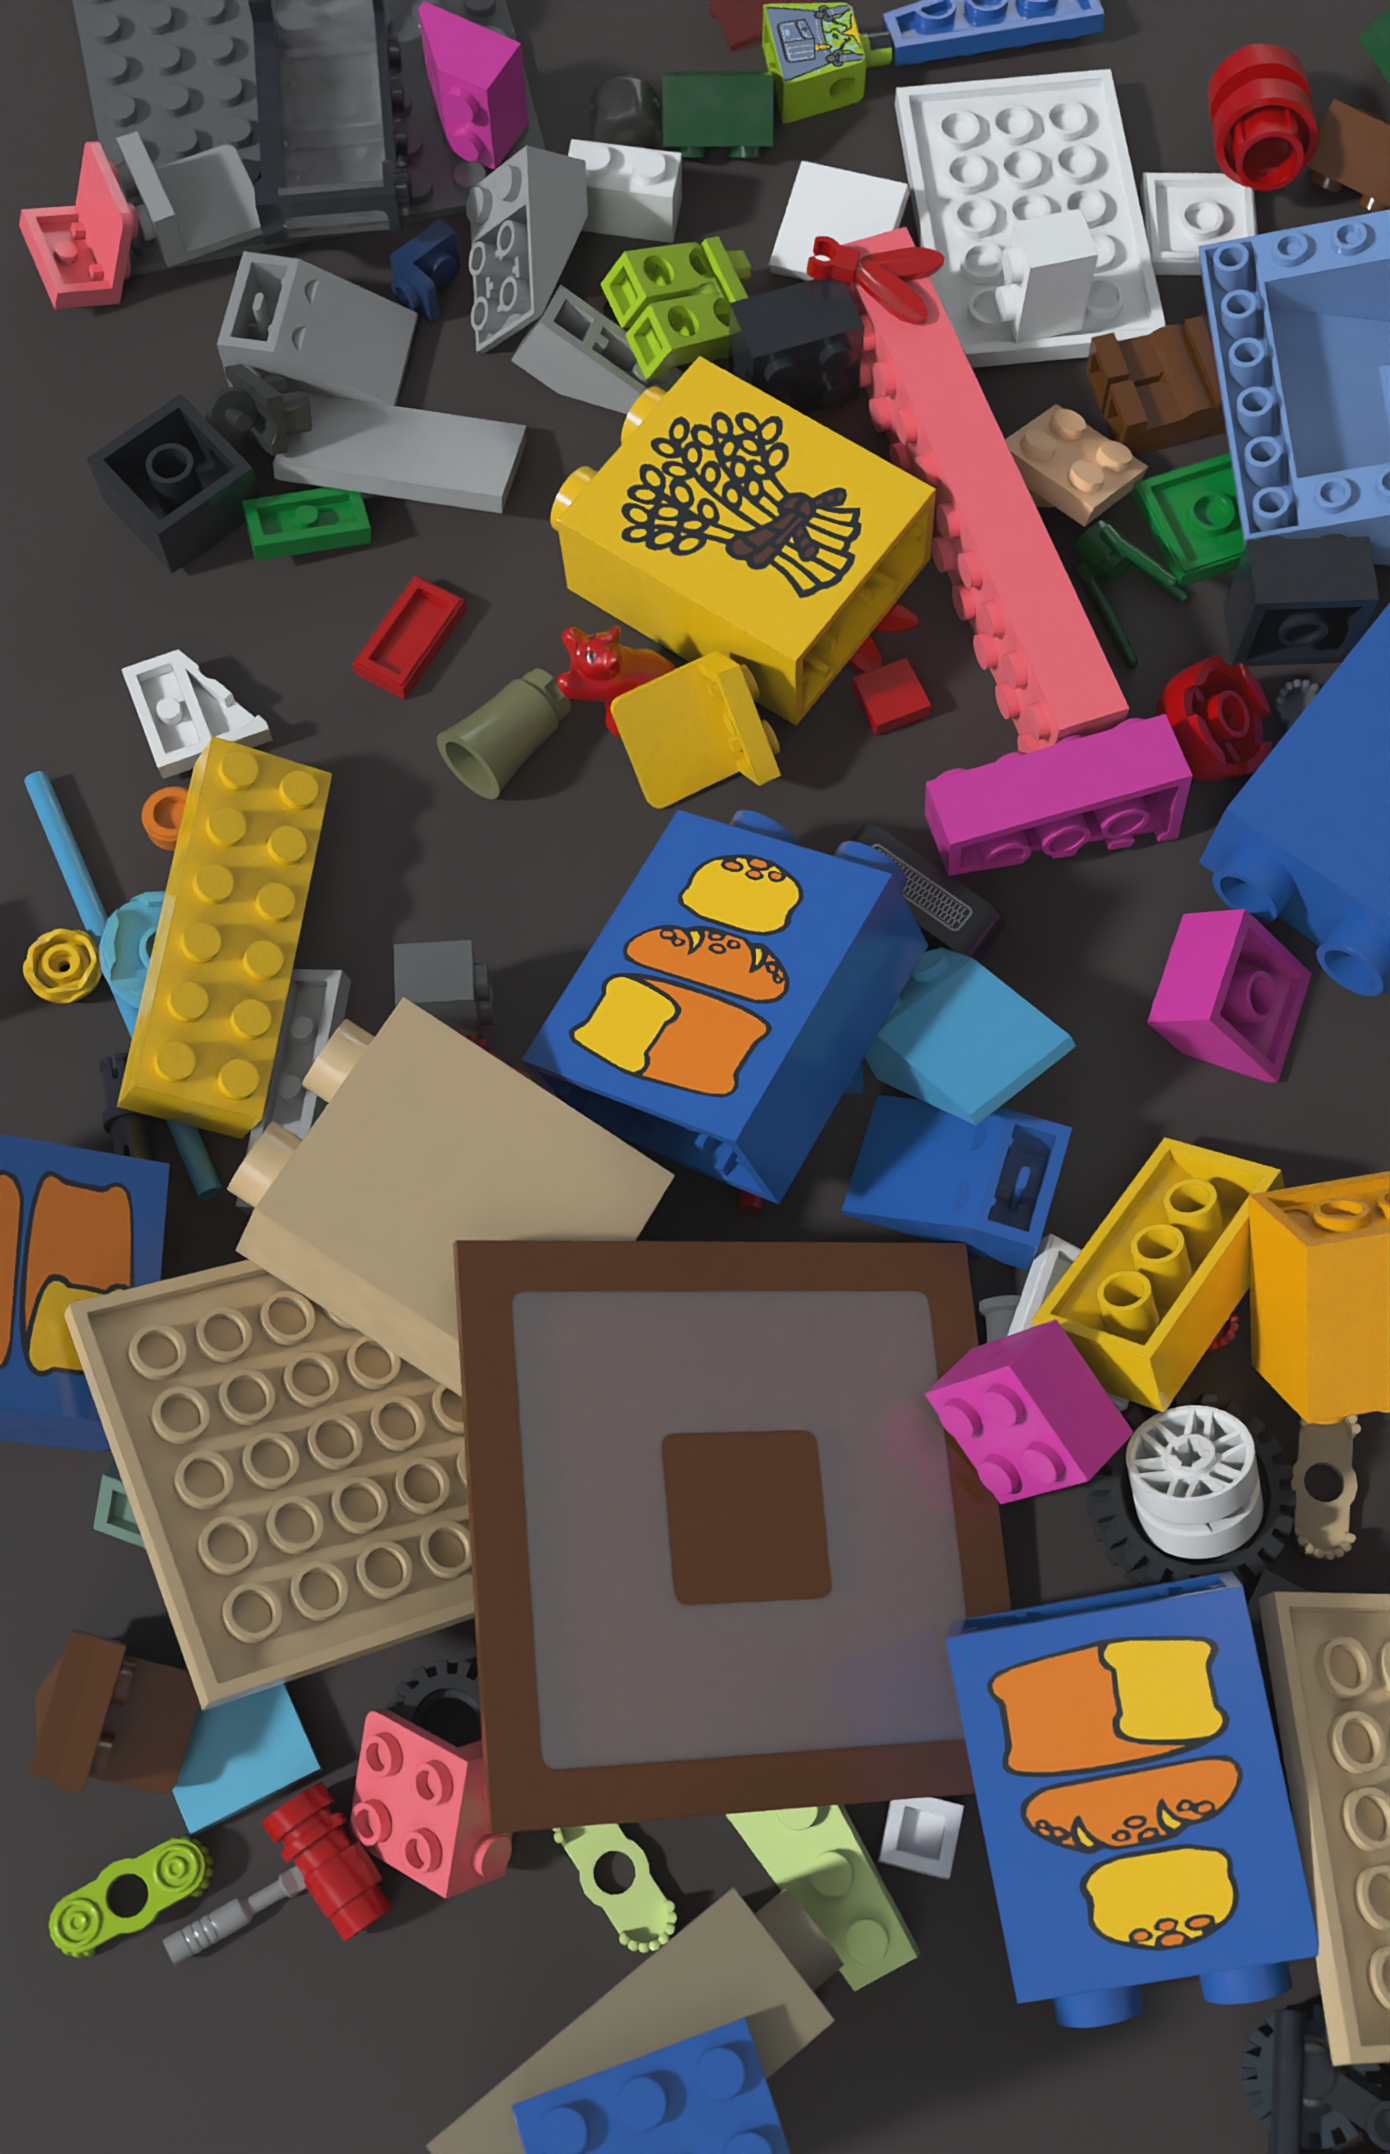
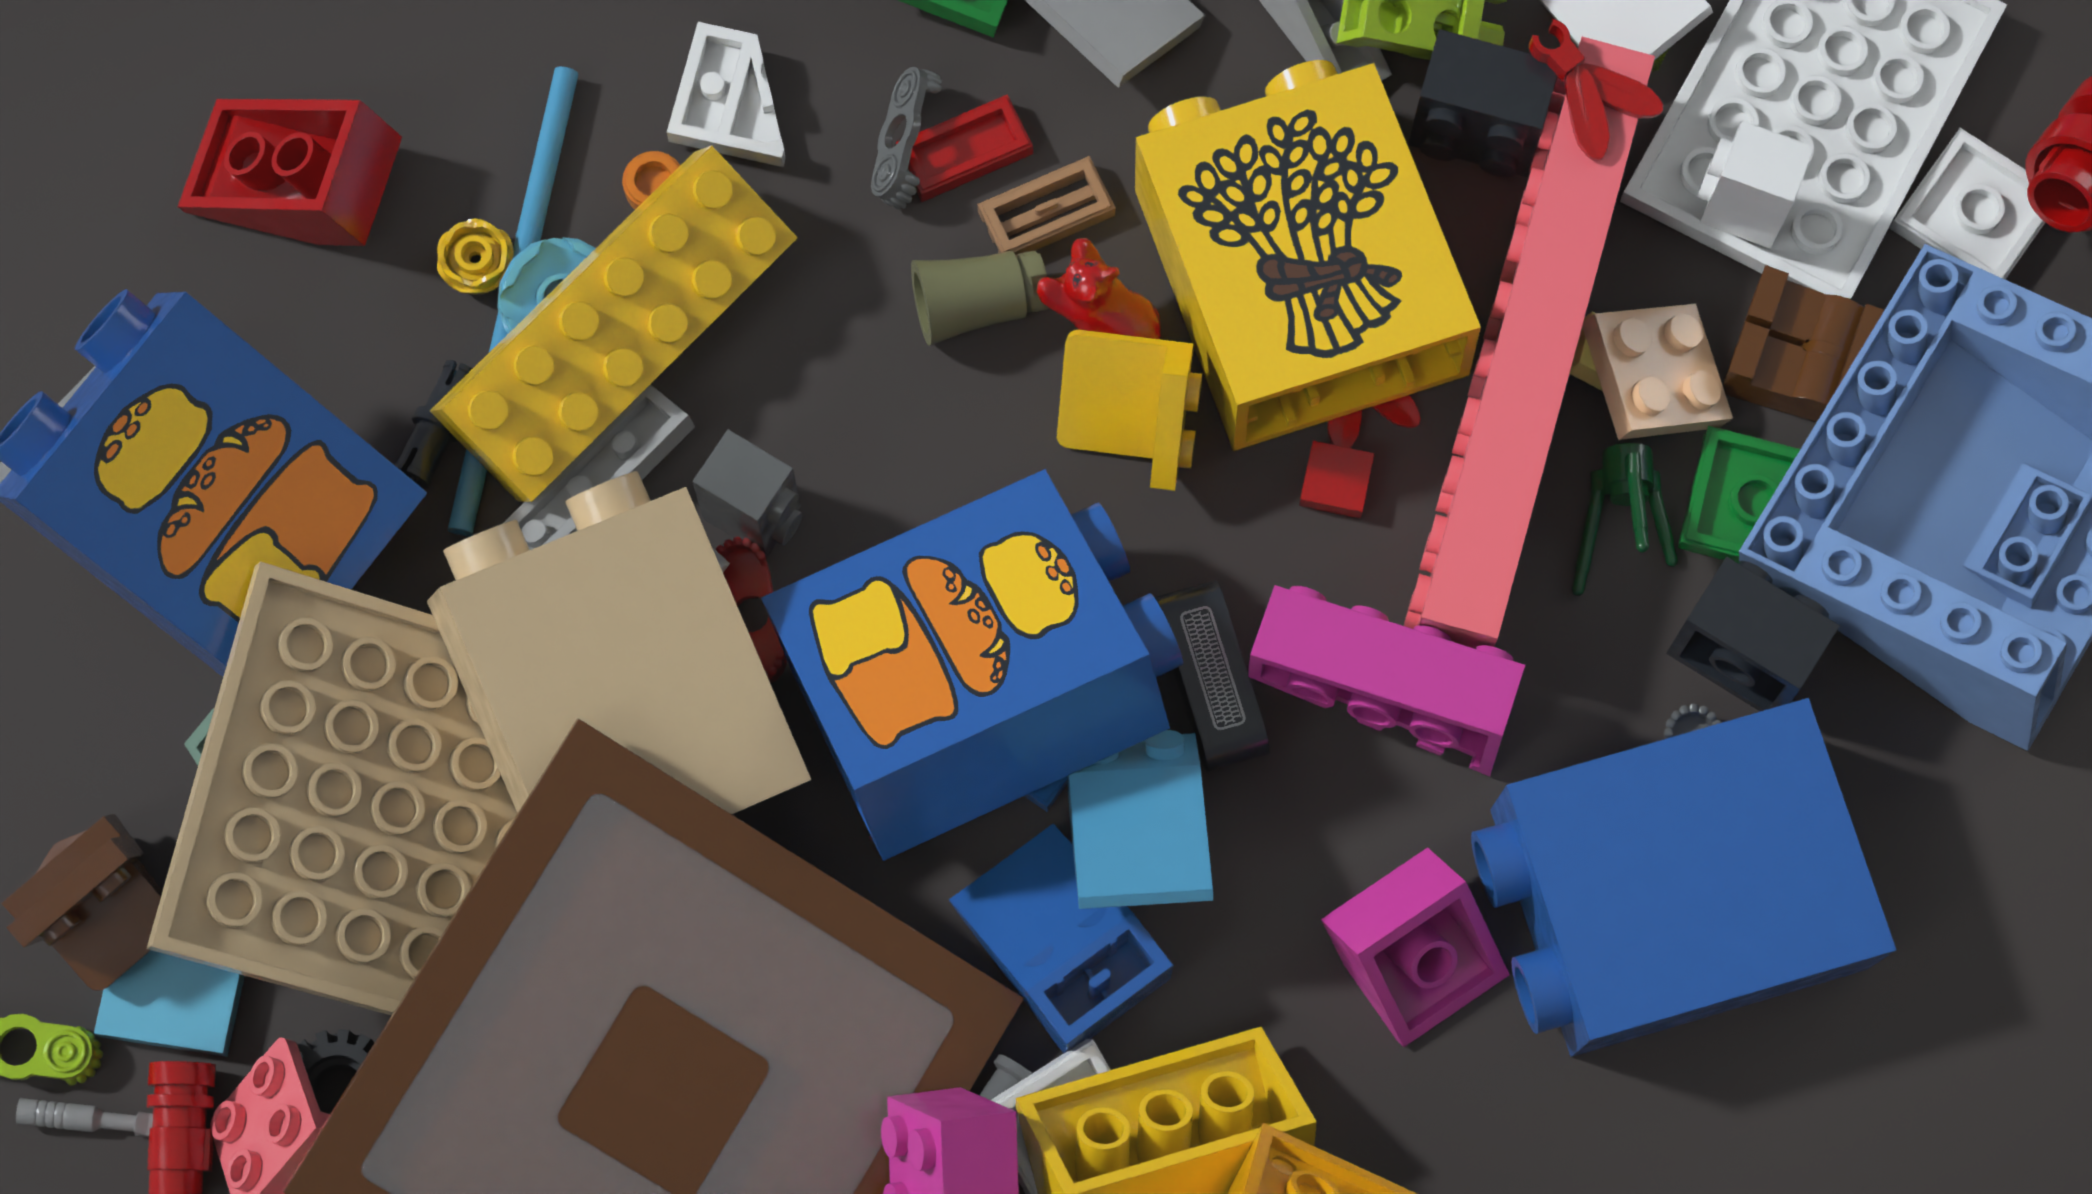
camera: 35 degrees right, 5 degrees up
(367, 686) = (890, 176): none -> dark grey piece
(488, 680) = (1055, 230): none -> medium nougat tile
(1217, 719) = (1588, 695): red cylinder -> none

